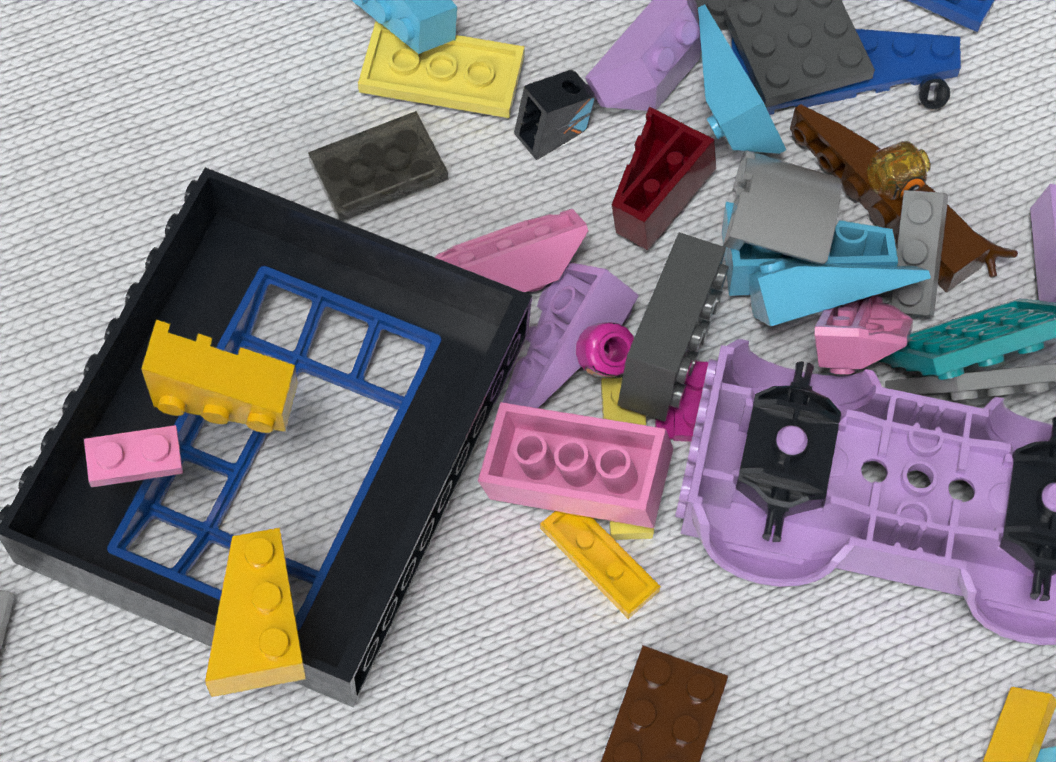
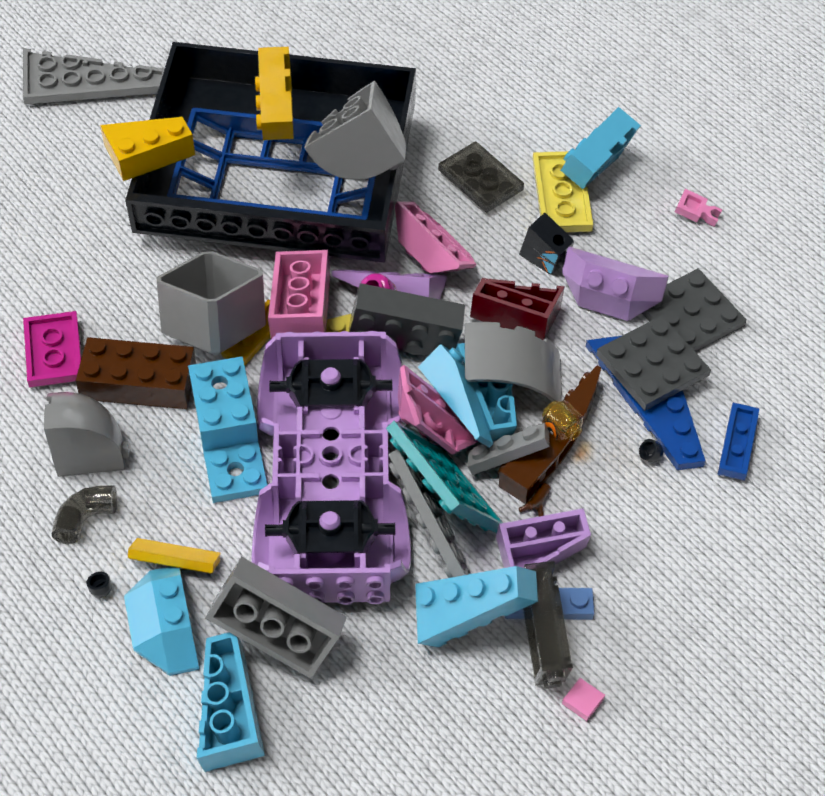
camera: 75 degrees right, 10 degrees down
(133, 456) = (228, 81): bright pink plate -> none
(358, 275) = (360, 138): none -> light grey brick
(564, 568) = (211, 302): none -> light grey plate
(731, 95) = (586, 326): medium azure wedge -> none
(800, 627) = (227, 429): none -> medium azure bracket

